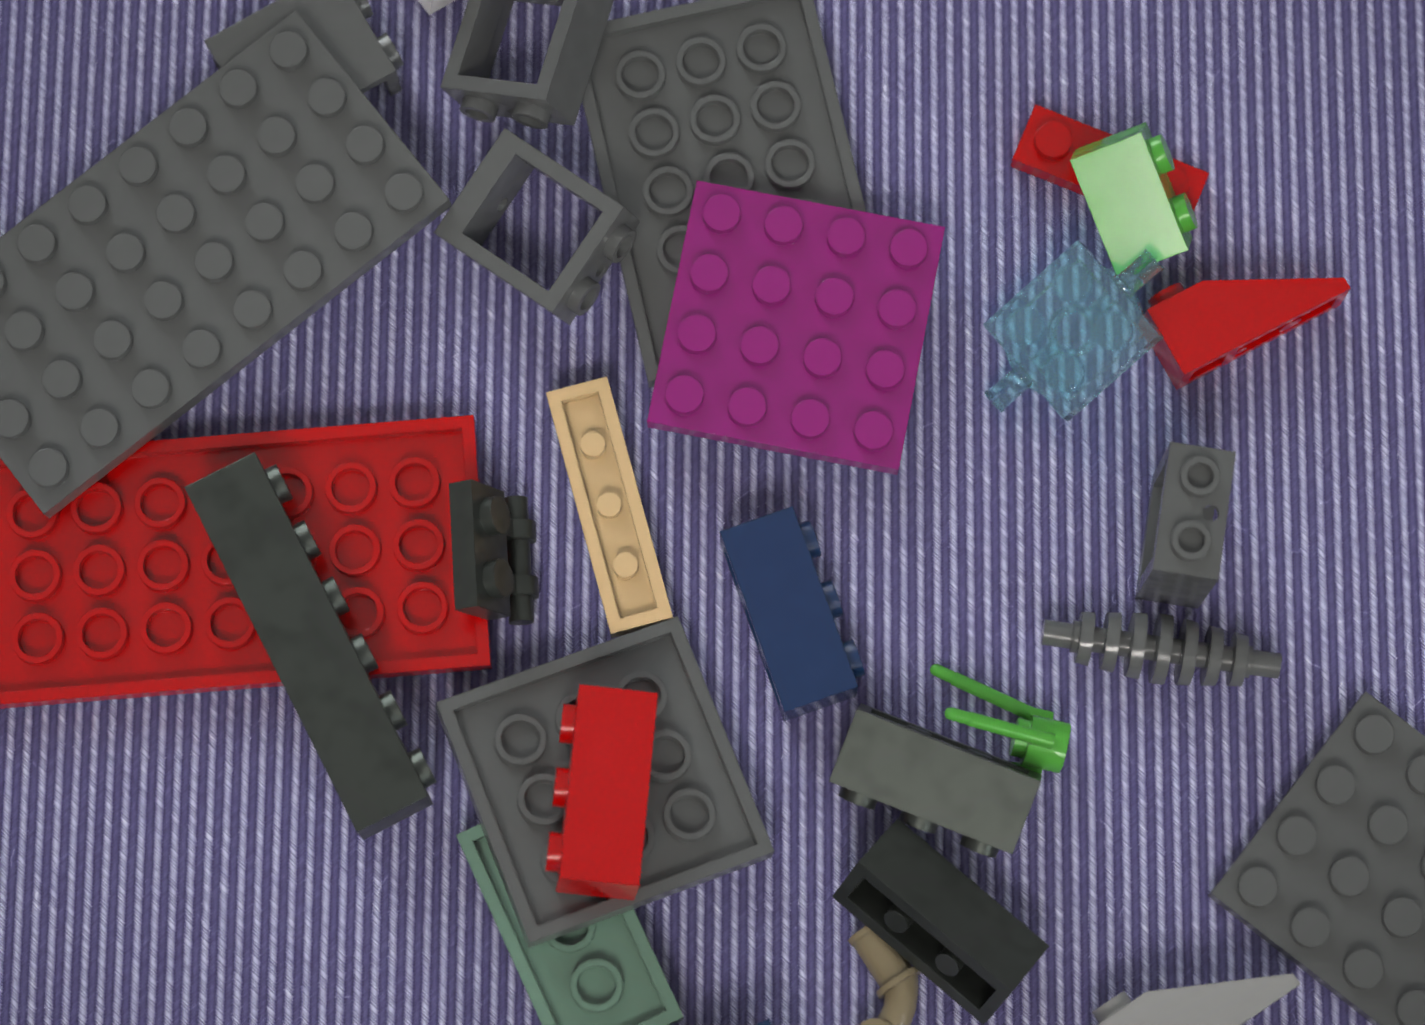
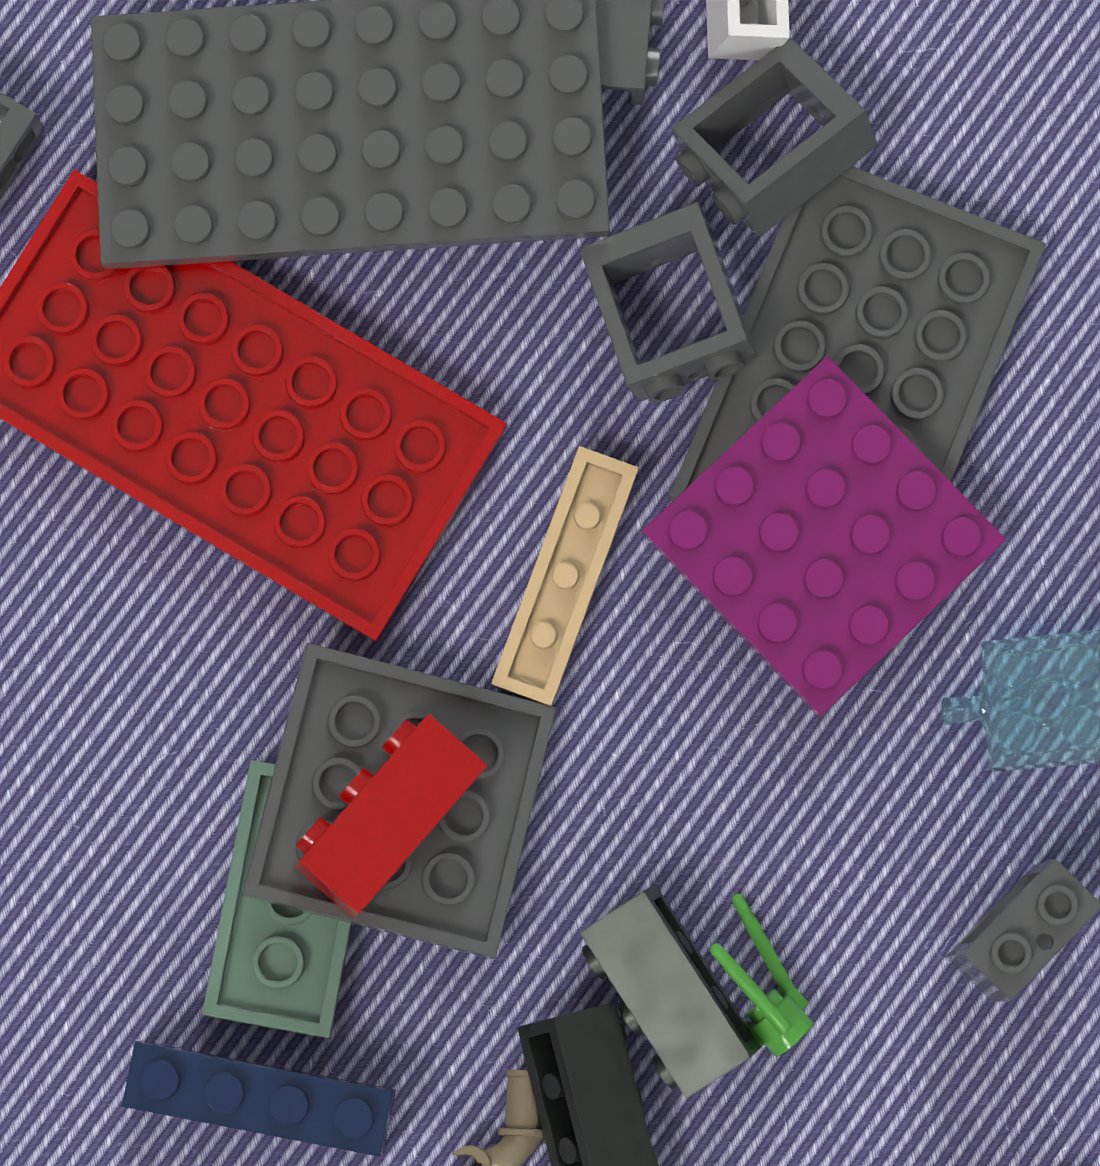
camera: 35 degrees right, 5 degrees up
(309, 645) = (239, 523): pearl dark grey brick -> none
(492, 553) = (440, 550): pearl dark grey plate -> none
(791, 612) = (651, 770): dark blue brick -> none
(1161, 649) = (934, 1016): dark grey piece -> none

